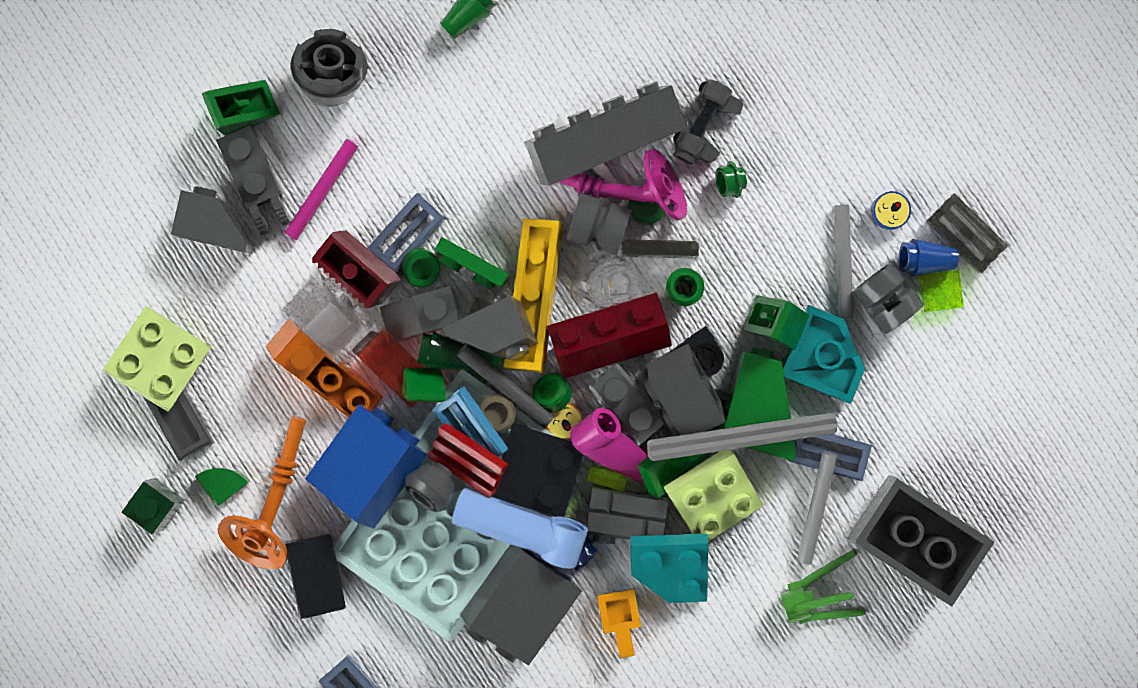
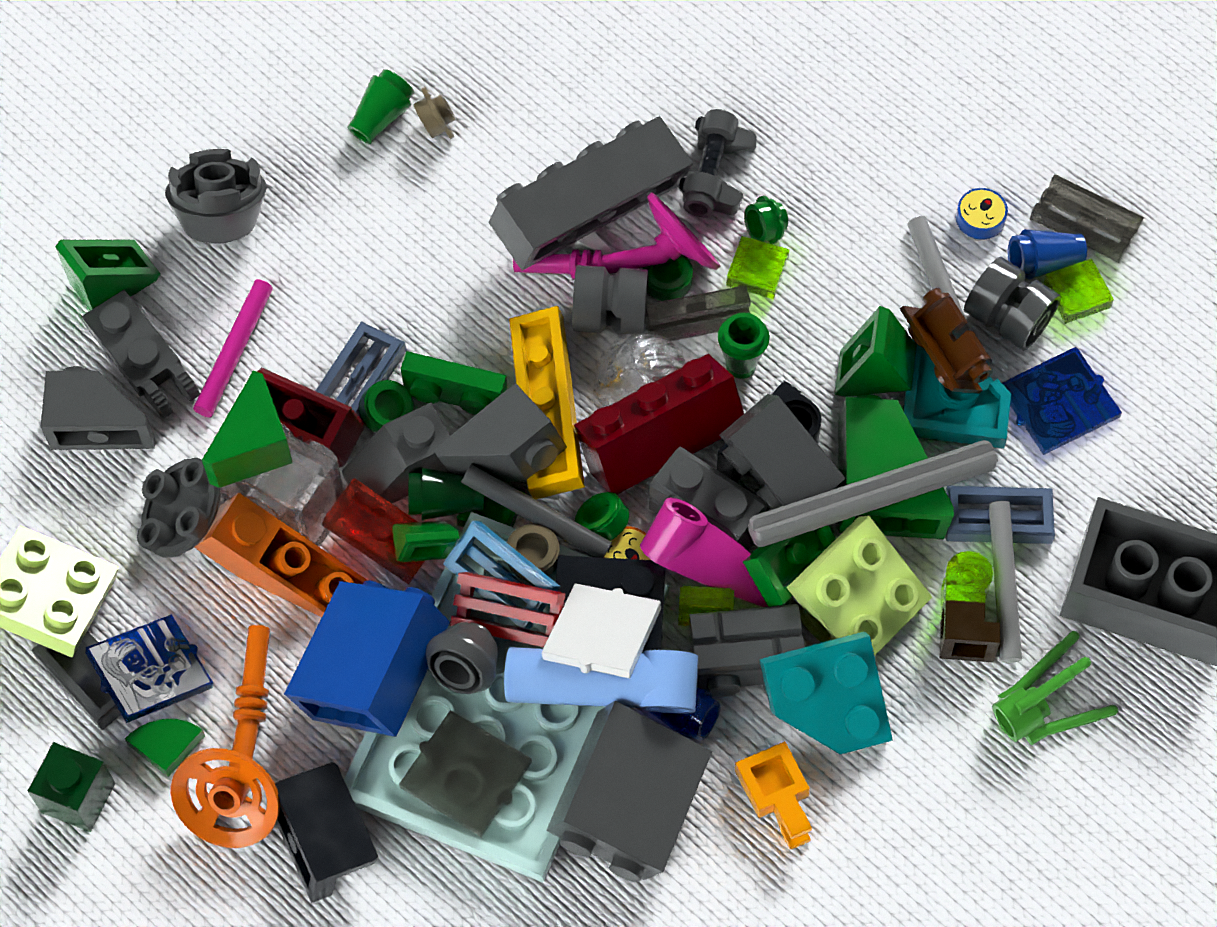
camera: 15 degrees left, 25 degrees down
(219, 428) = (149, 668): none -> piece
(258, 315) = (177, 508): none -> dark grey dish
(312, 305) = (249, 438): none -> green slope
(415, 561) = (465, 773): none -> clear smoke piece
(507, 29) = (435, 114): none -> dark tan plate
(526, 497) = (601, 630): none -> white piece
(714, 215) = (758, 267): none -> clear neon green tile
(782, 519) = (962, 615): none -> leg
(824, 311) = (957, 362): none -> reddish brown hinge
(900, 374) = (1061, 400): none -> clear blue piece

